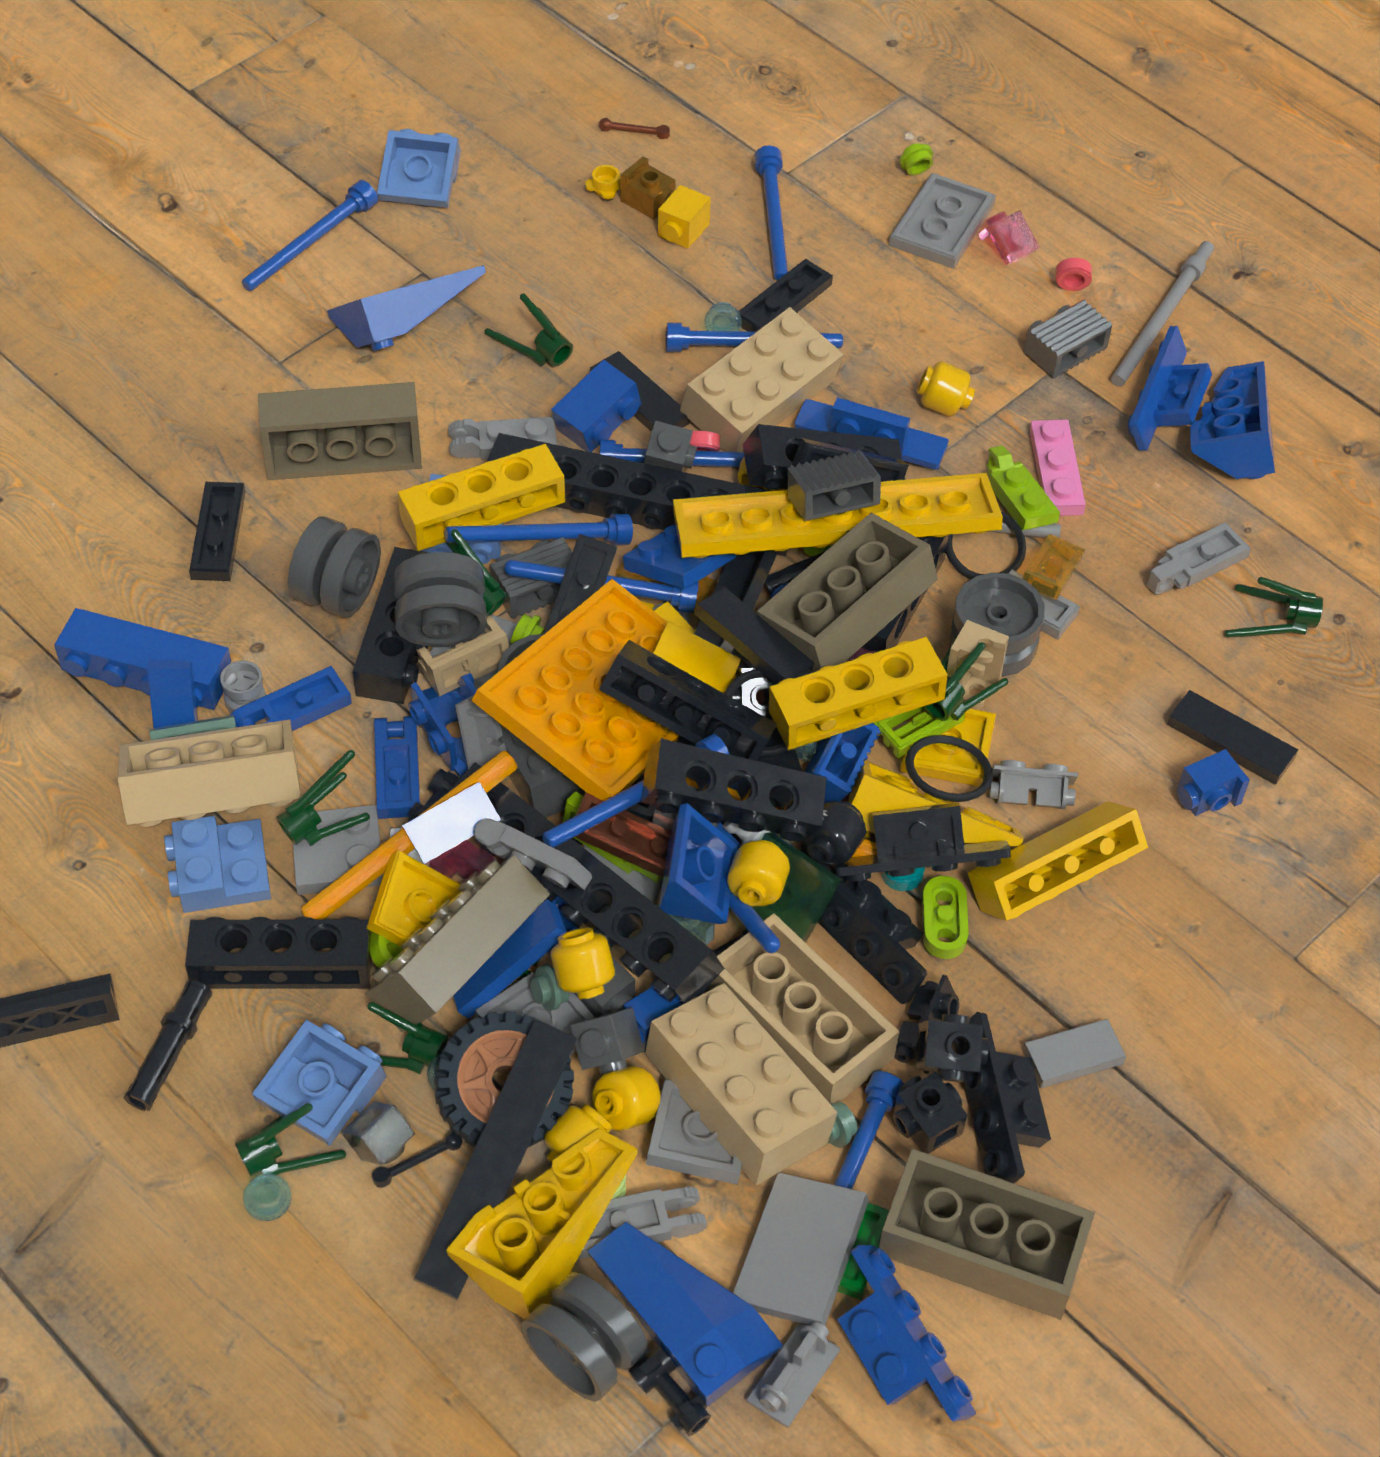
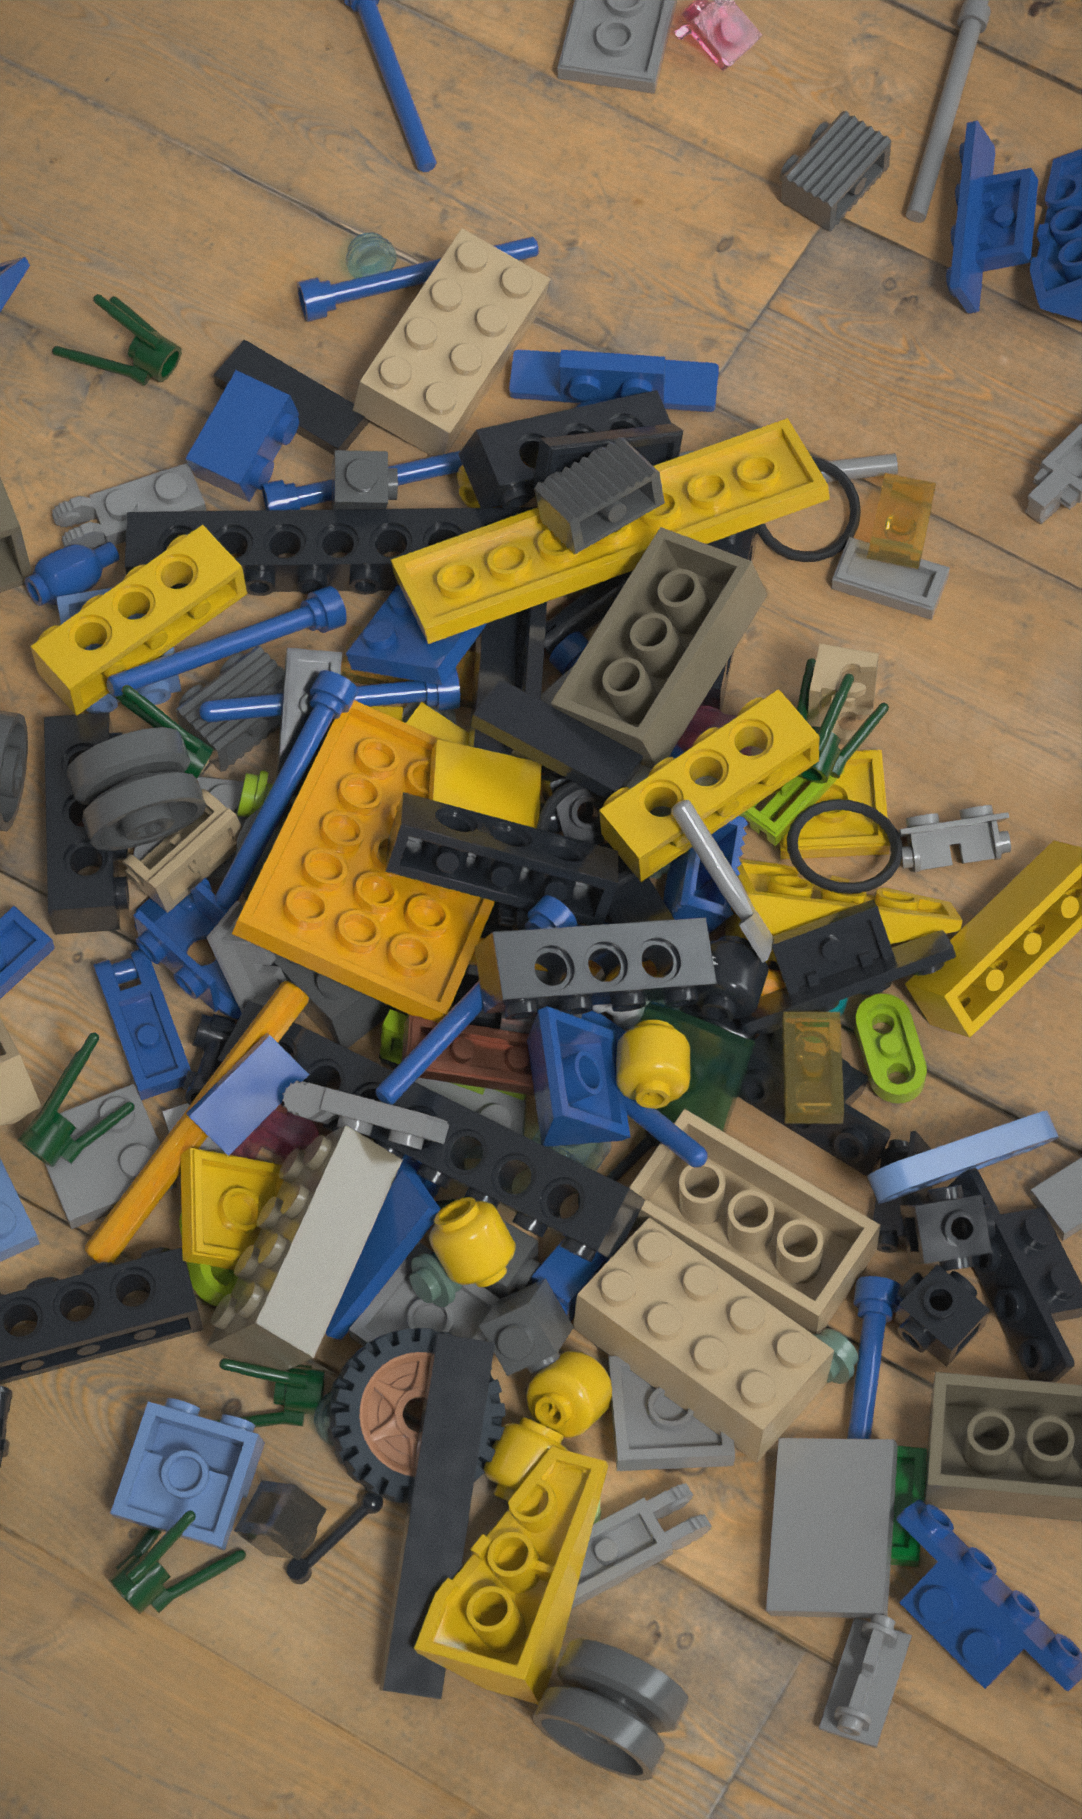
camera: 10 degrees left, 10 degrees up
(267, 1197) = (169, 1635): clear light blue plate -> none
(444, 462) = (69, 572): none -> blue plant
(599, 572) = (331, 697): none -> blue piece
(604, 181) = (143, 66): yellow plate -> none
(645, 188) = (208, 75): pearl gold brick -> none
(654, 1371) = (703, 1725): black bar -> none
(684, 216) = (271, 108): yellow brick -> none
(694, 1320) = (727, 1647): blue wedge -> none
(706, 441) = (400, 451): coral tile -> none
(792, 290) = (442, 199): black tile -> none
(849, 754) = (724, 877): none -> light grey piece
(879, 908) = (812, 1067): none -> clear yellow plate
(945, 388) = (694, 289): yellow head -> none
(969, 999) = (961, 1155): none -> medium blue beam
(1005, 606) = (857, 608): dark grey wheel -> none
(1019, 491) = (830, 419): lime hinge -> none
(1057, 465) = (868, 368): bright pink plate -> none
(1073, 274) = (818, 68): coral tile -> none

